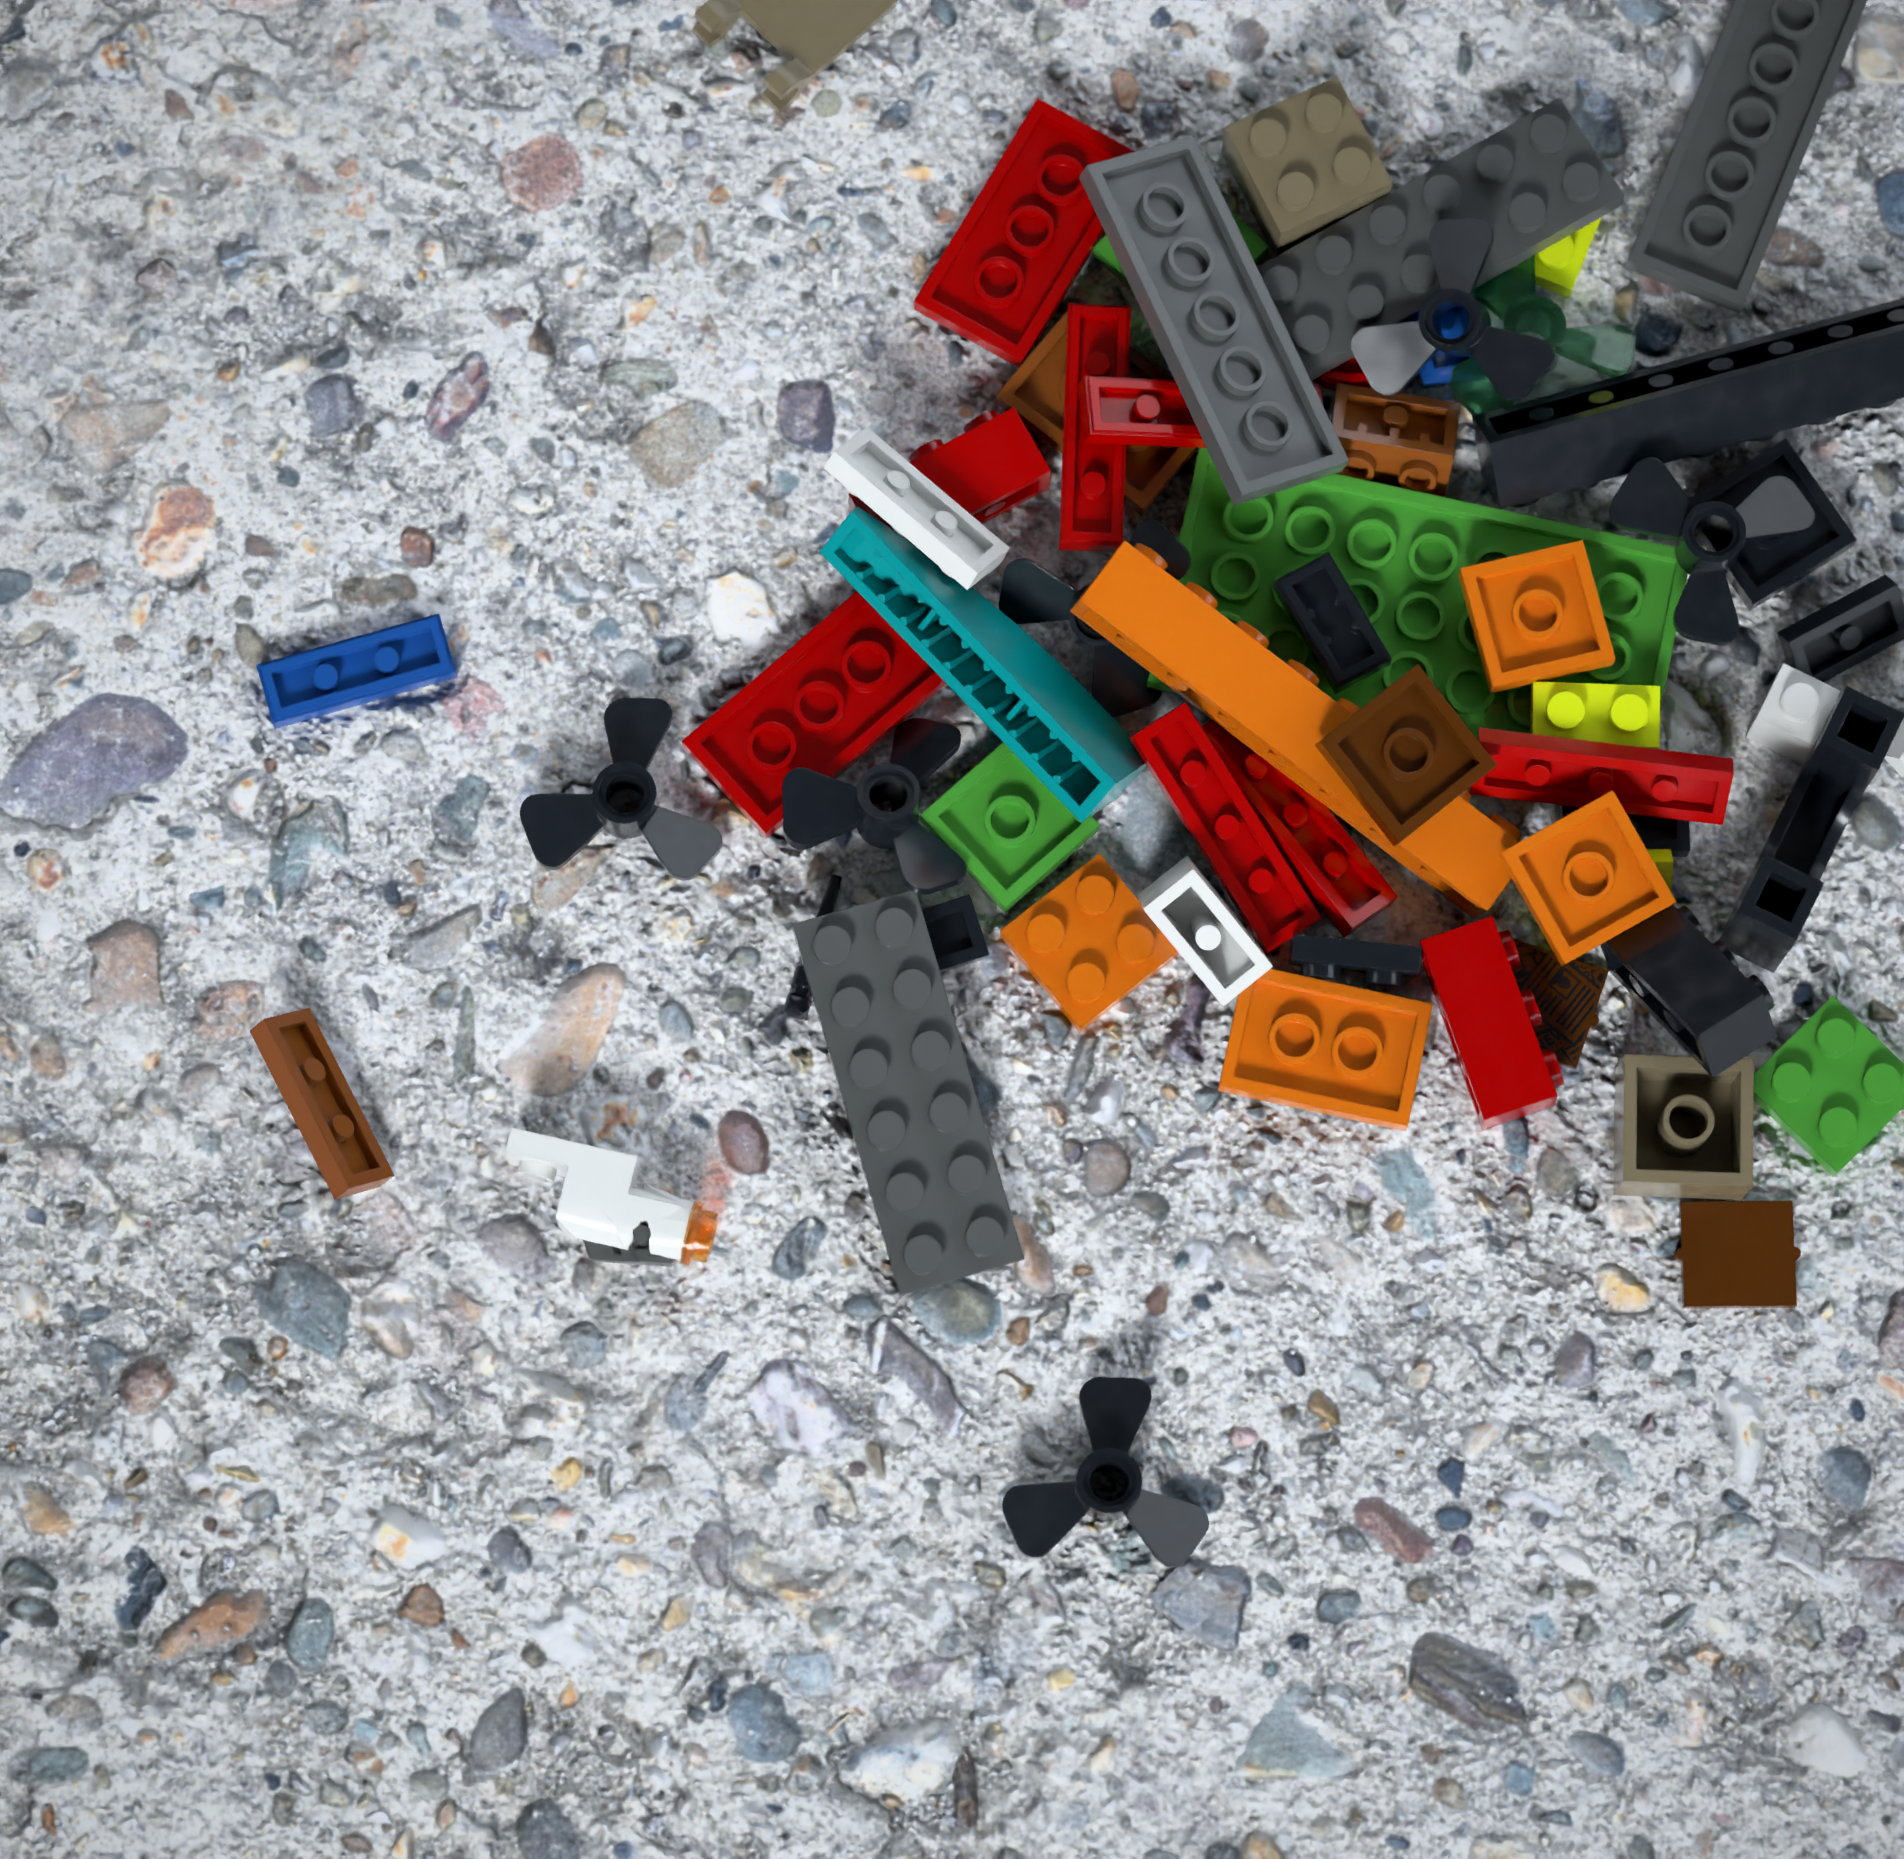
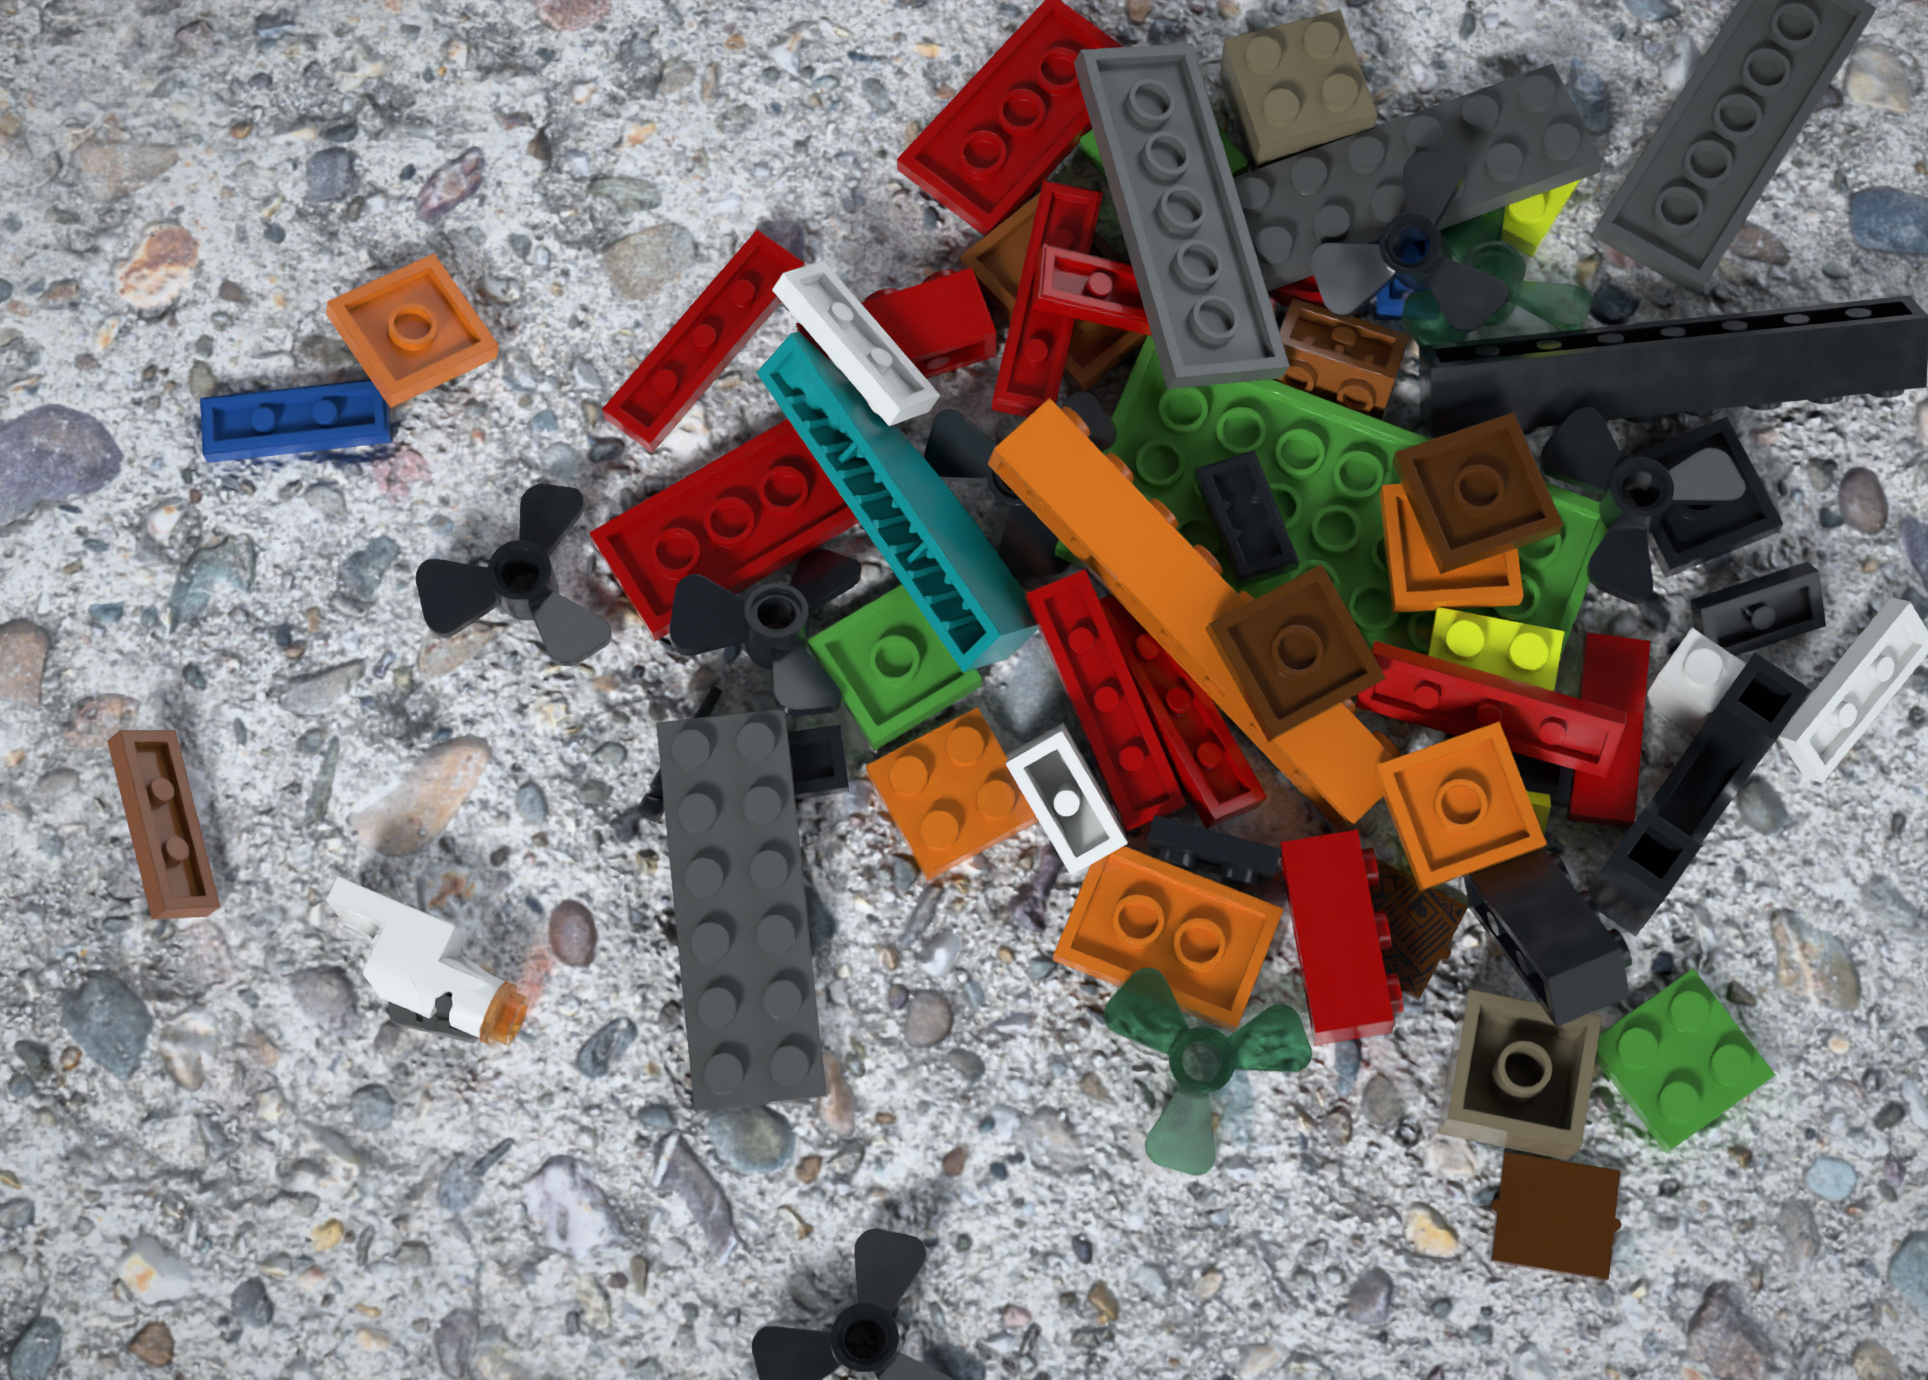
camera: 15 degrees right, 5 degrees down
(458, 560) = (412, 330): none -> orange plate
(755, 522) = (701, 343): none -> red plate
(1323, 1130) = (1150, 1016): none -> clear green piece
(1555, 563) = (1477, 493): none -> reddish brown plate
(1718, 726) = (1616, 677): none -> red tile

